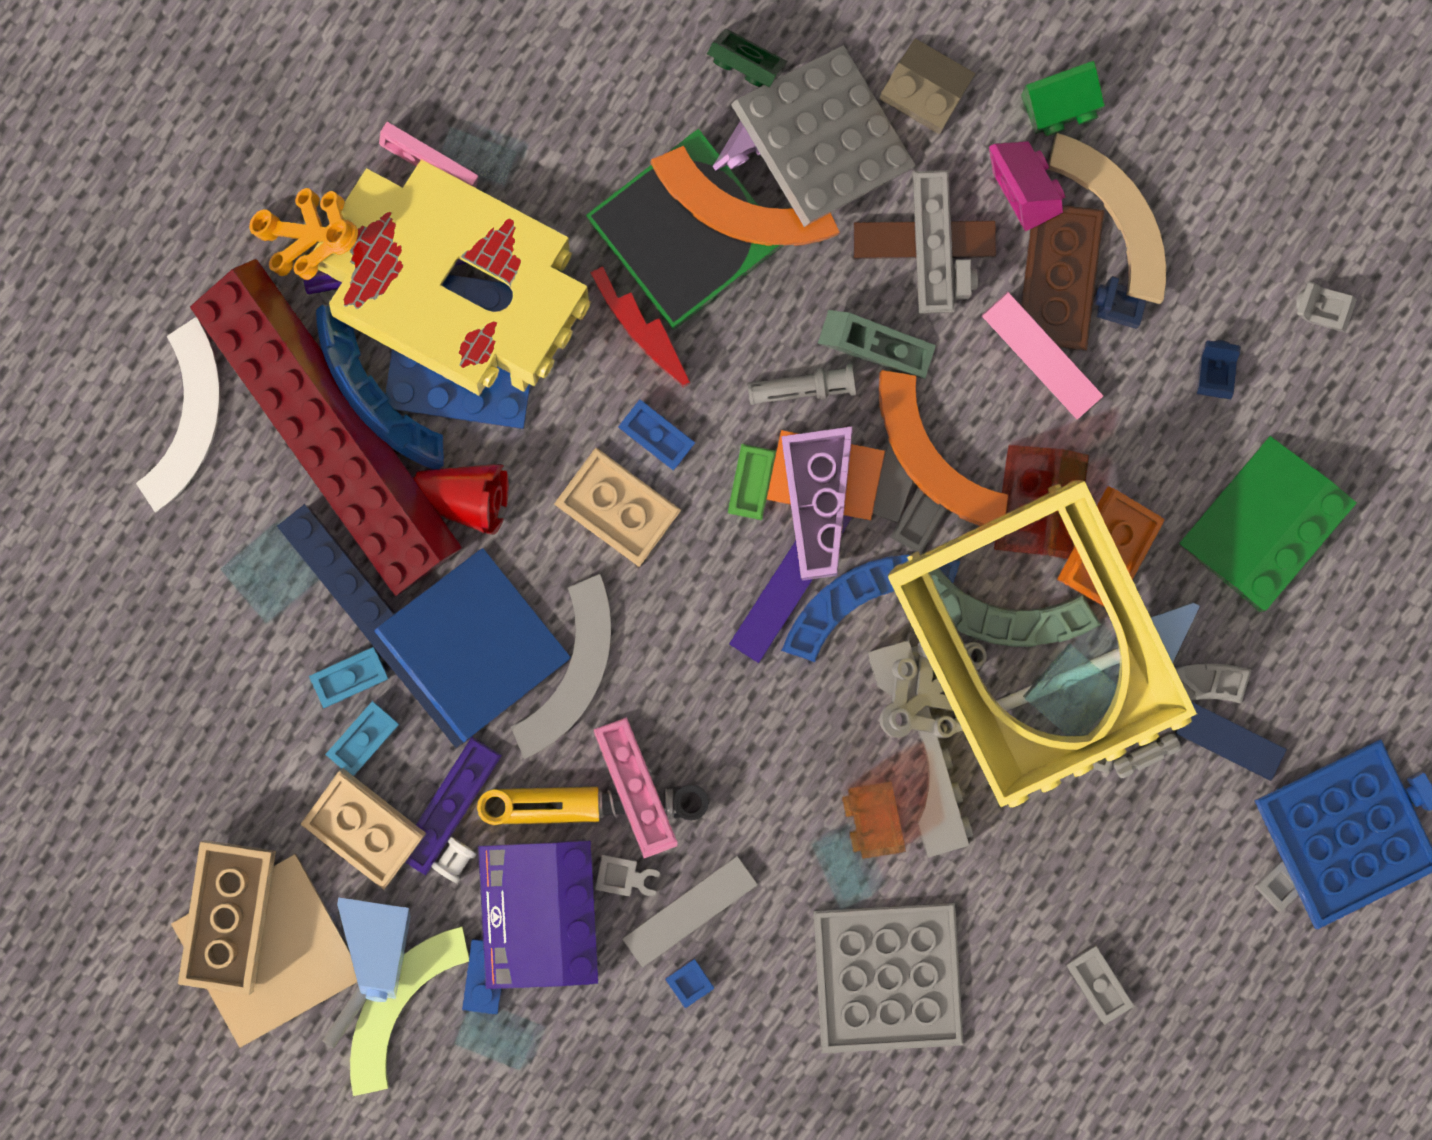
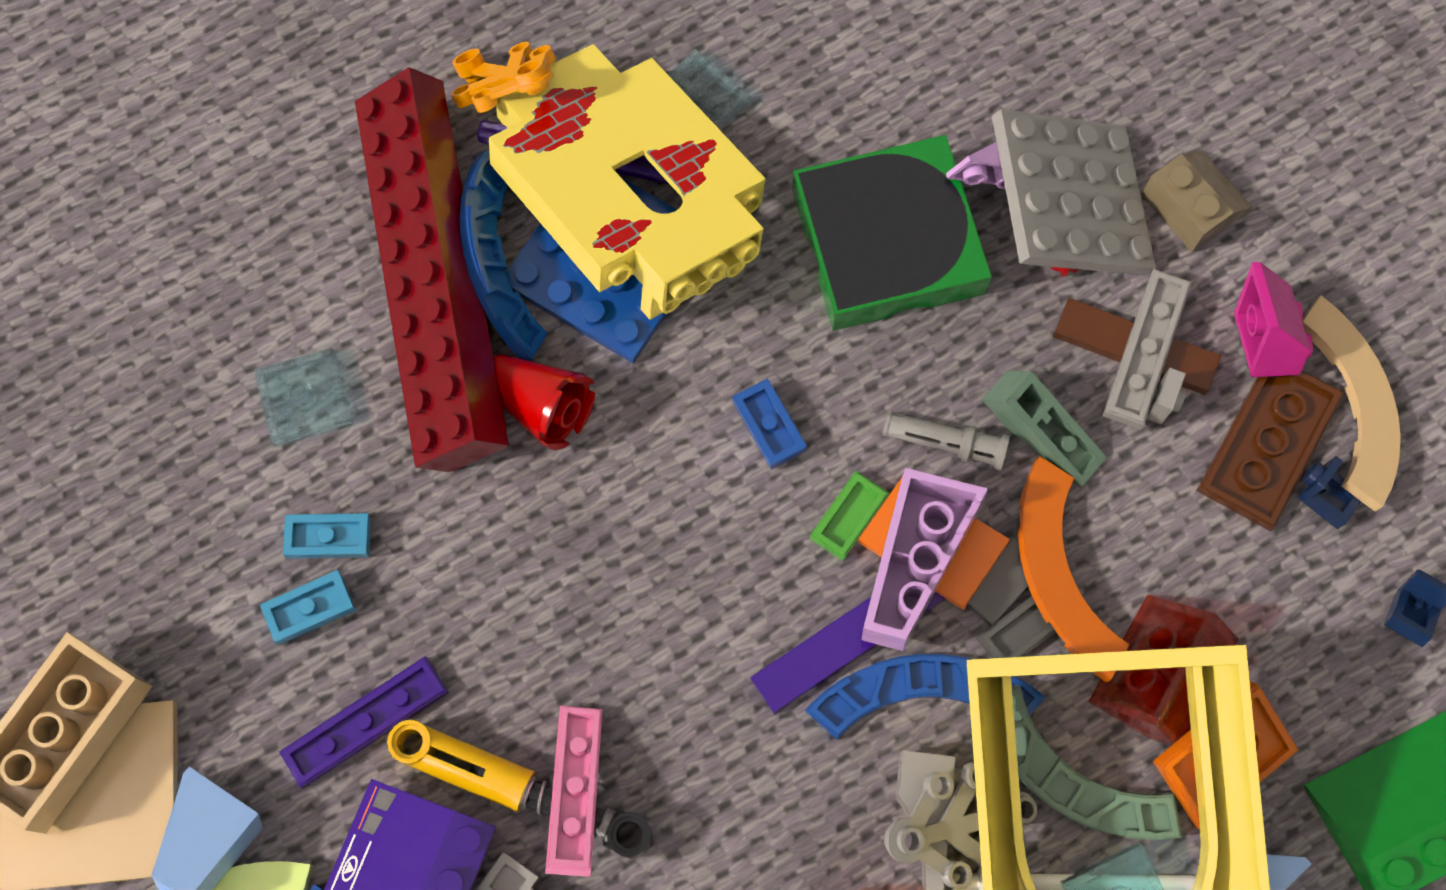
camera: 30 degrees right, 15 degrees down
(197, 421) = (307, 221): white tile -> none
(353, 593) = (387, 499): dark blue brick -> none
(363, 828) = (258, 704): tan tile -> none
(414, 150) = (643, 45): bright pink tile -> none
(454, 860) = (338, 784): white bush -> none
(472, 644) = (469, 554): blue tile -> none
(583, 673) = (575, 643): light grey tile -> none
(617, 507) = (695, 482): tan tile -> none
(649, 337) = (803, 319): red slope -> none
(732, 215) = (949, 229): orange tile -> none
(755, 62) = (1014, 84): dark green plate -> none
(1042, 355) = (1223, 512): bright pink tile -> none
(1063, 98) = (1344, 257): green slope -> none

